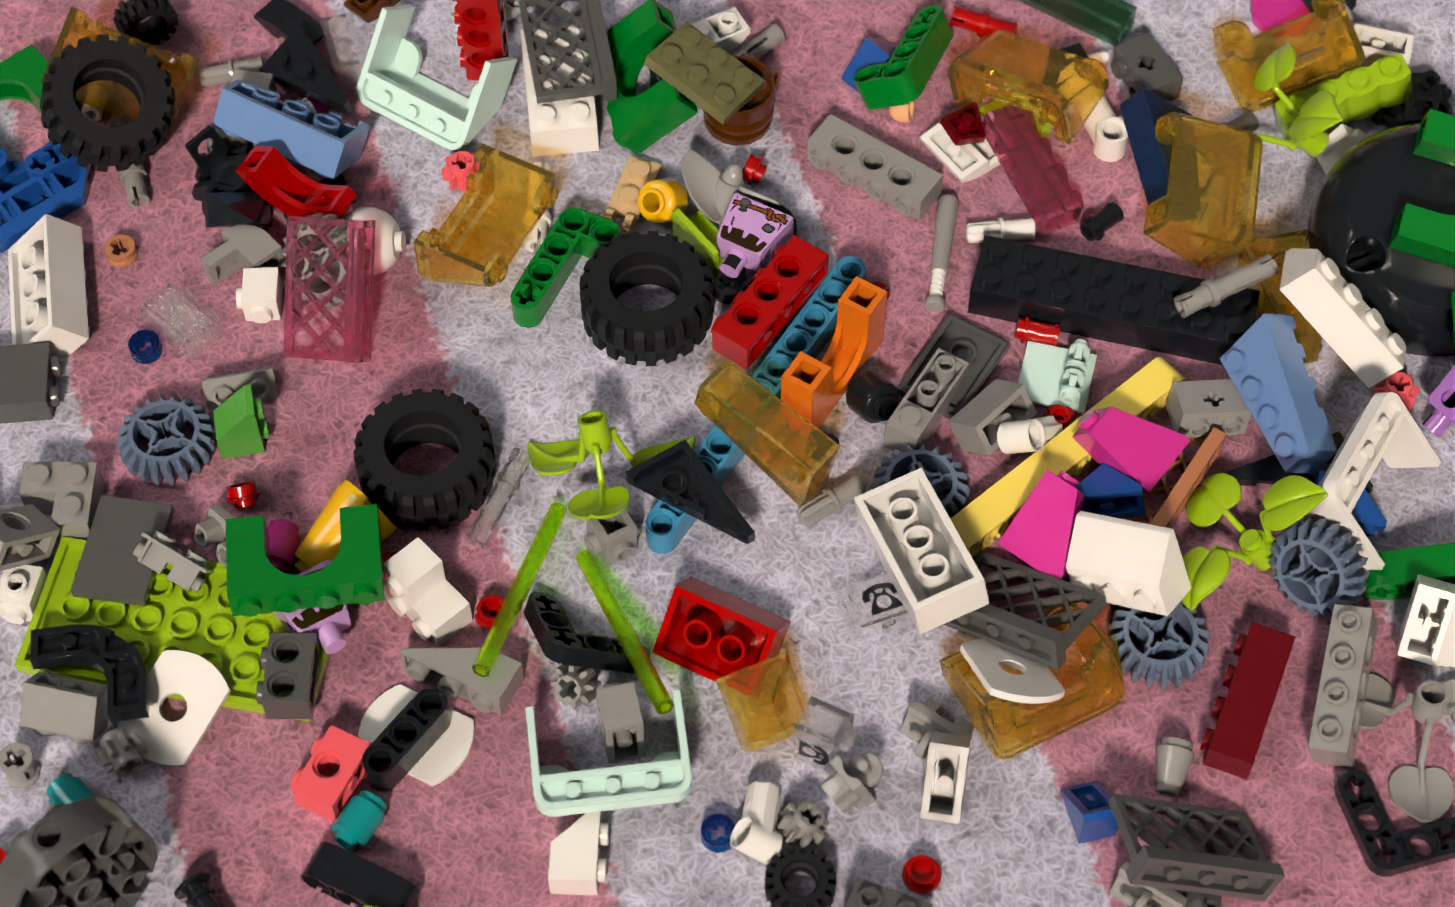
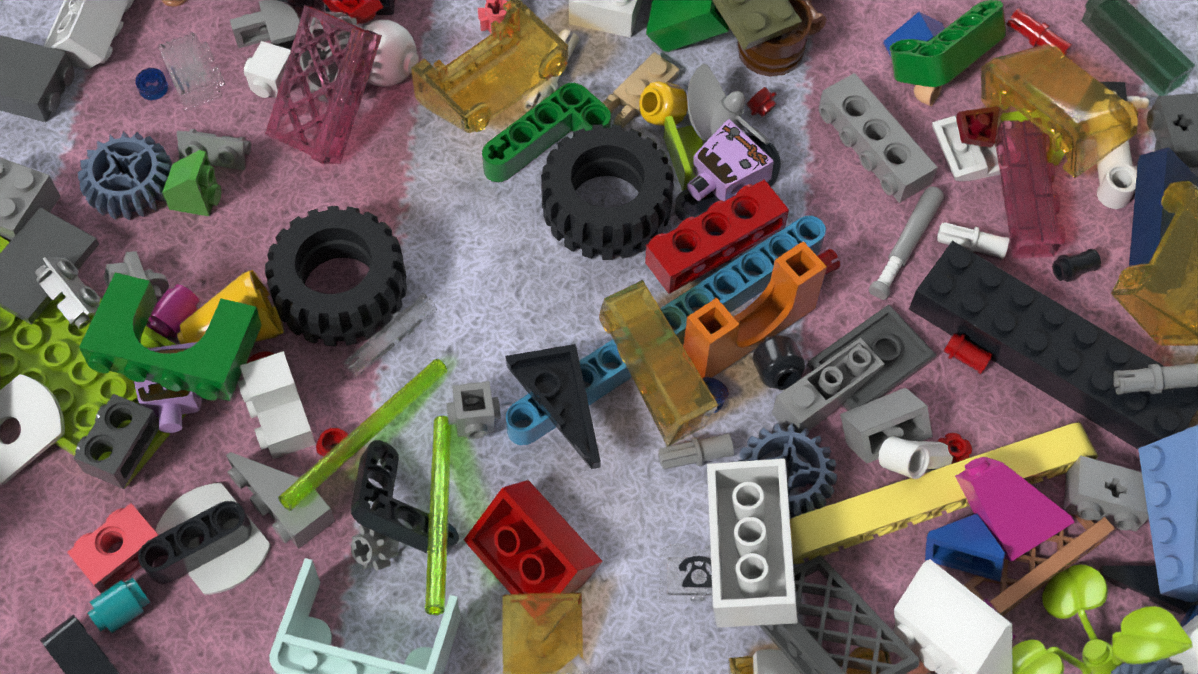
camera: 20 degrees right, 5 degrees up
(242, 494) = (167, 249): red plate -> none
(595, 439) = (490, 312): lime plant -> none
(620, 721) = (393, 603): light grey brick -> none
(1046, 524) = (891, 557): dark pink slope -> none
(1058, 374) = (970, 404): light aqua hinge -> none

